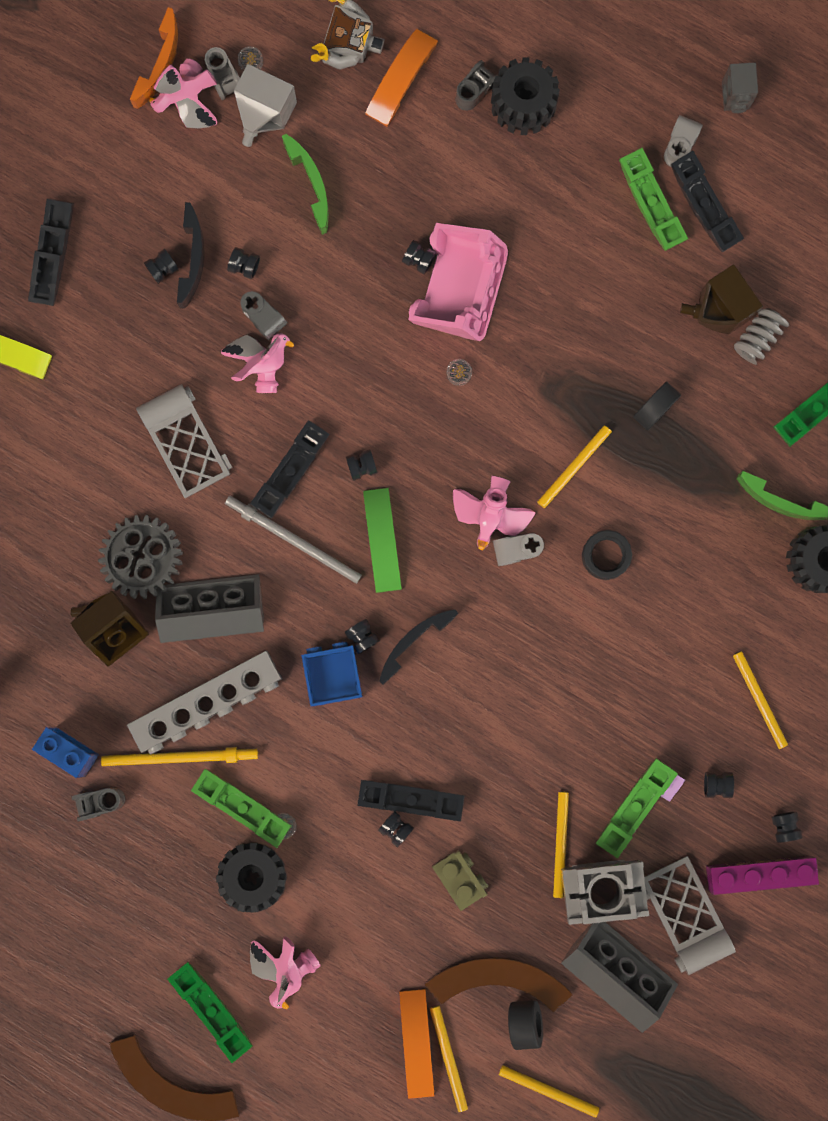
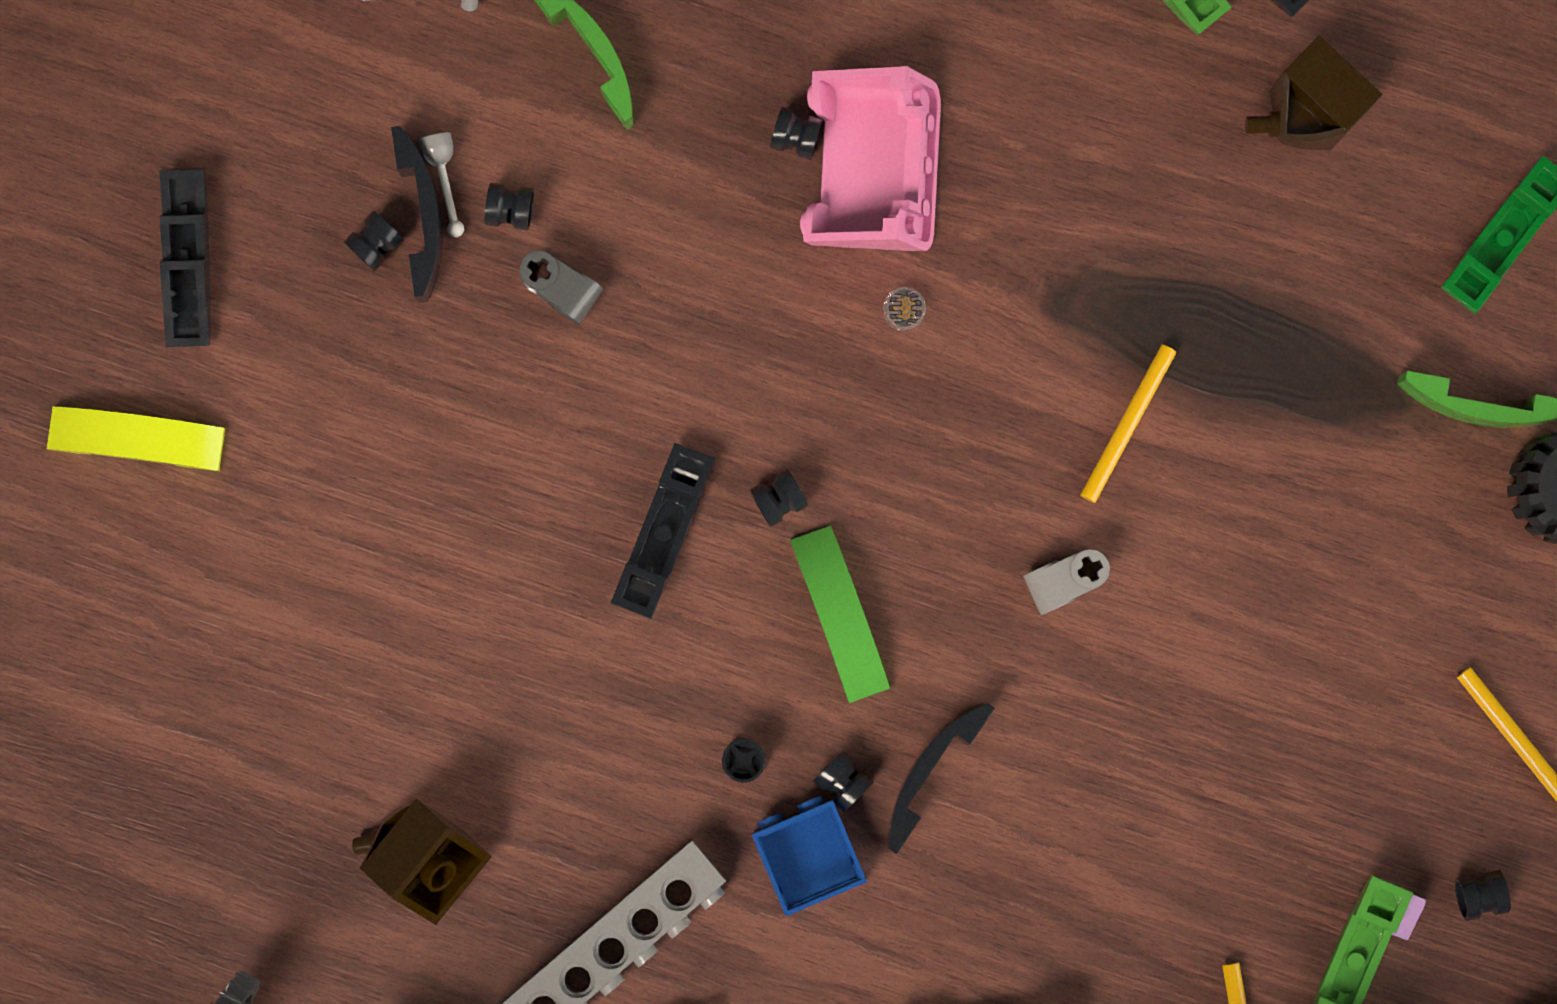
camera: 15 degrees left, 0 degrees up
(119, 548) = (410, 724): dark grey gear -> none
(165, 411) = (436, 479): light grey piece -> none
(209, 222) = (437, 151): none -> hinge
(209, 608) = (581, 790): dark grey slope -> none
(250, 513) = (613, 618): light grey bar -> none
(259, 360) = (571, 361): bright pink animal -> none
(305, 608) = (743, 760): none -> black wheel
(491, 512) = (1010, 529): bright pink animal -> none
(612, 536) = (1245, 545): black tyre -> none
(657, 406) = (1243, 294): black tyre -> none
(759, 334) = (1383, 140): light grey piece -> none

